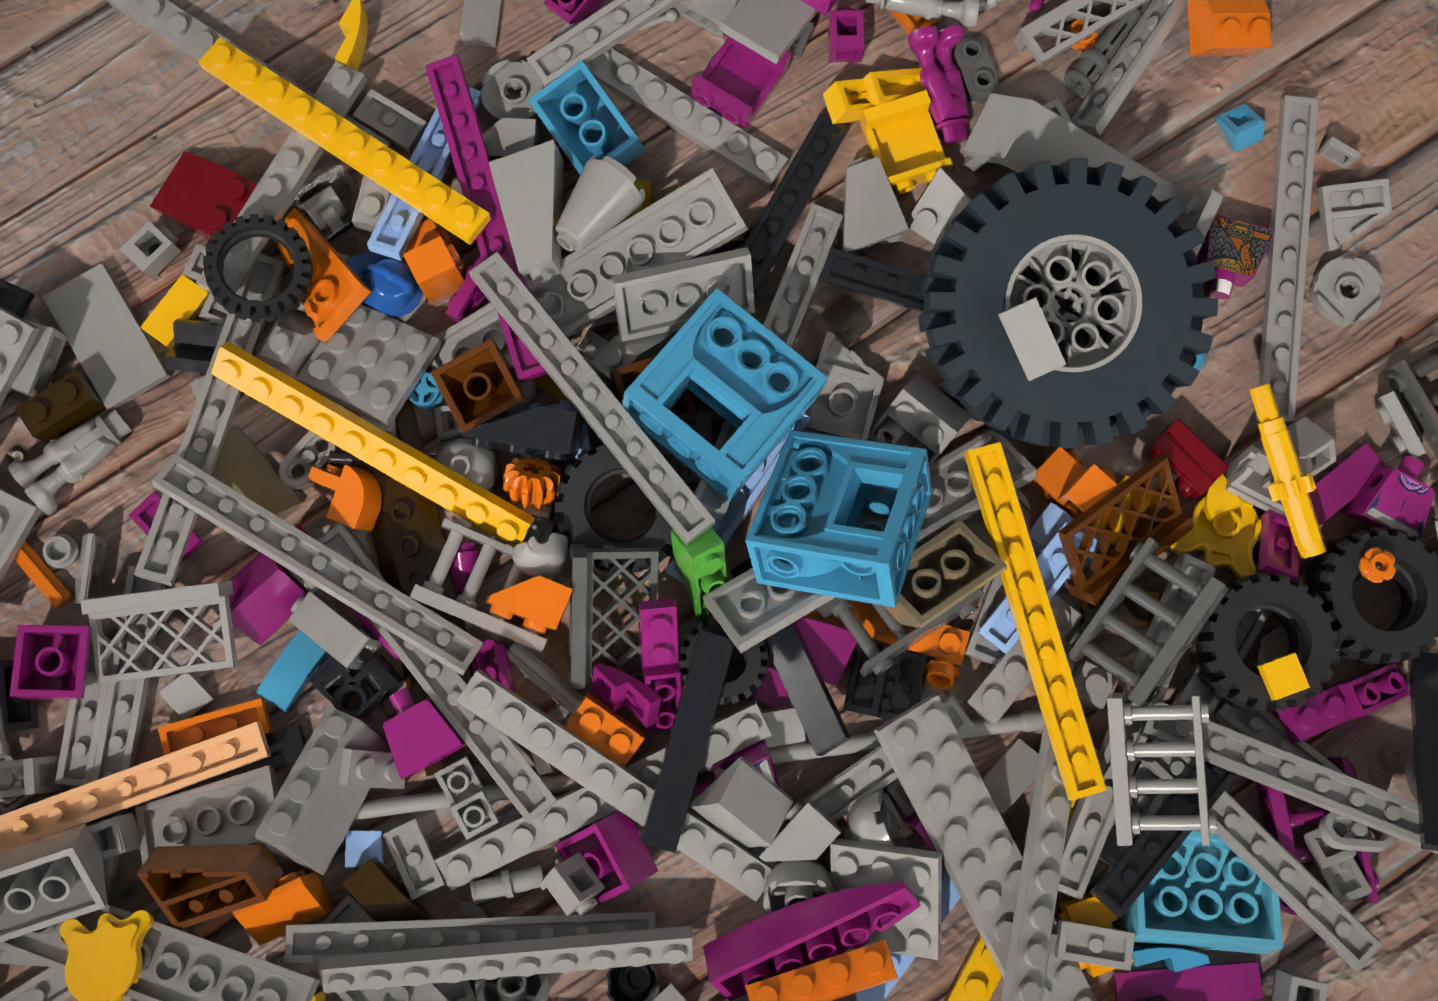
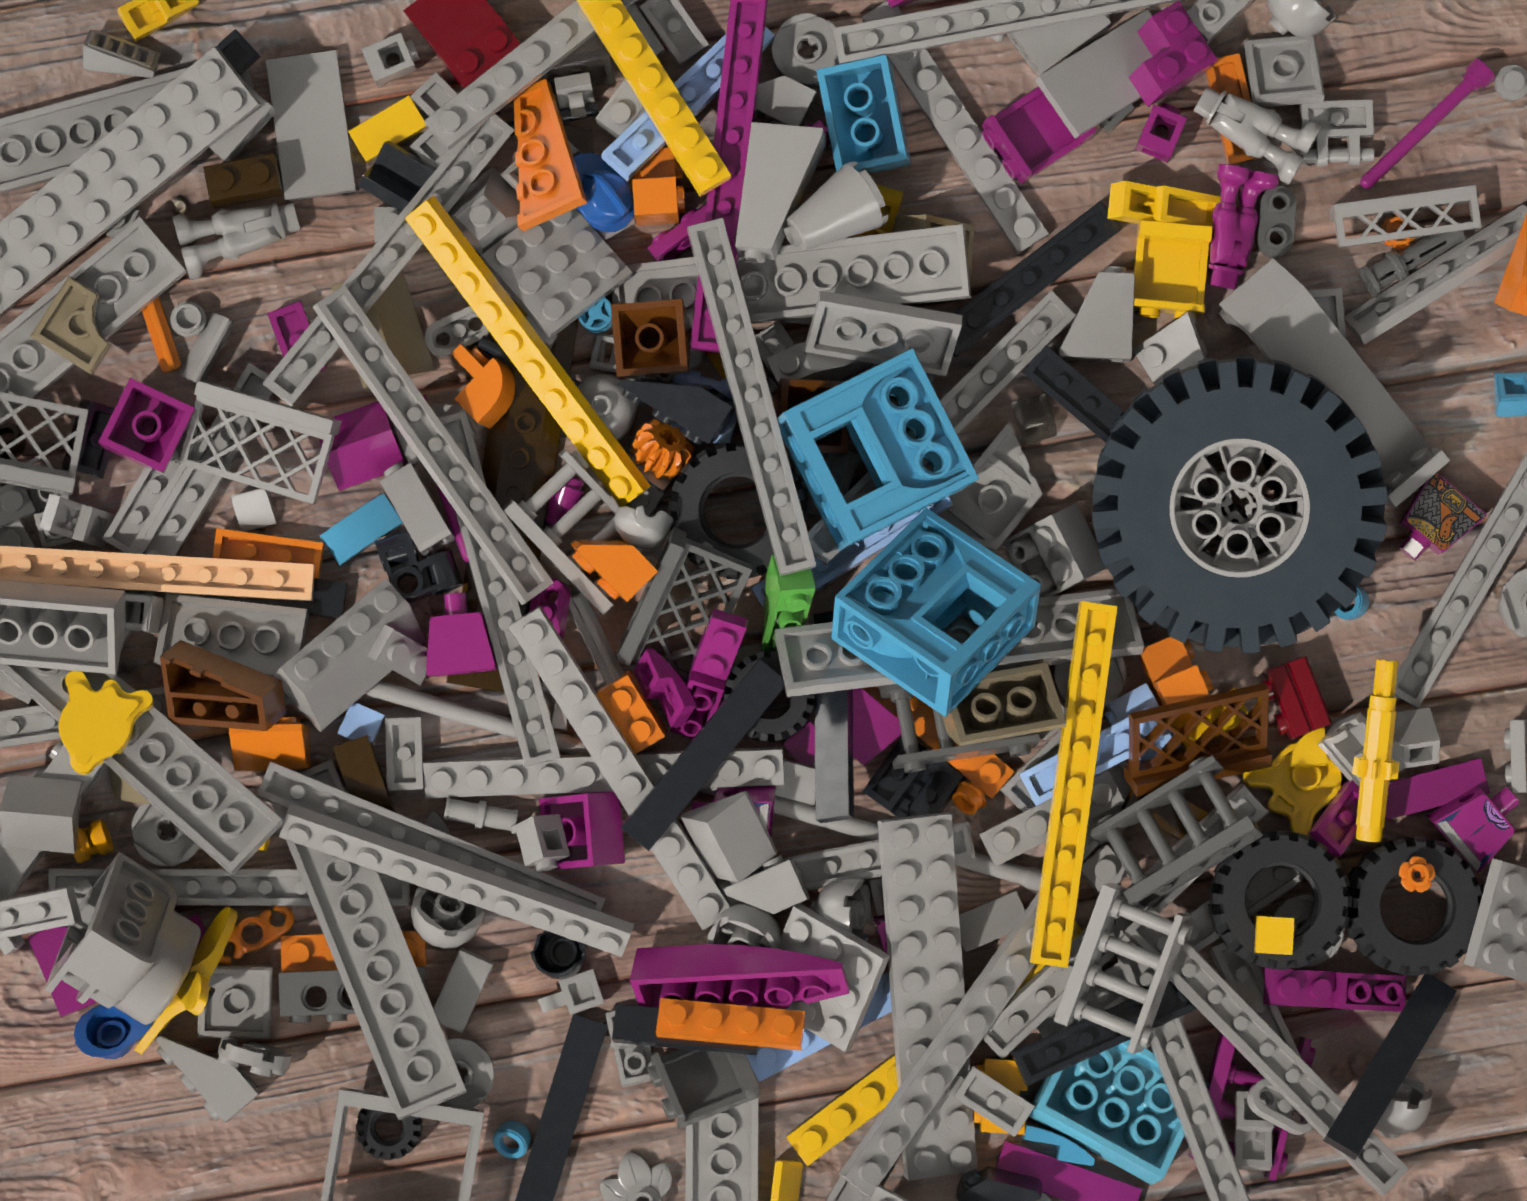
camera: 25 degrees right, 5 degrees up
(246, 229) = (531, 121): black tyre -> none
(466, 797) = (477, 718): light grey slope -> none
(1032, 339) = (1183, 525): light grey hinge -> none

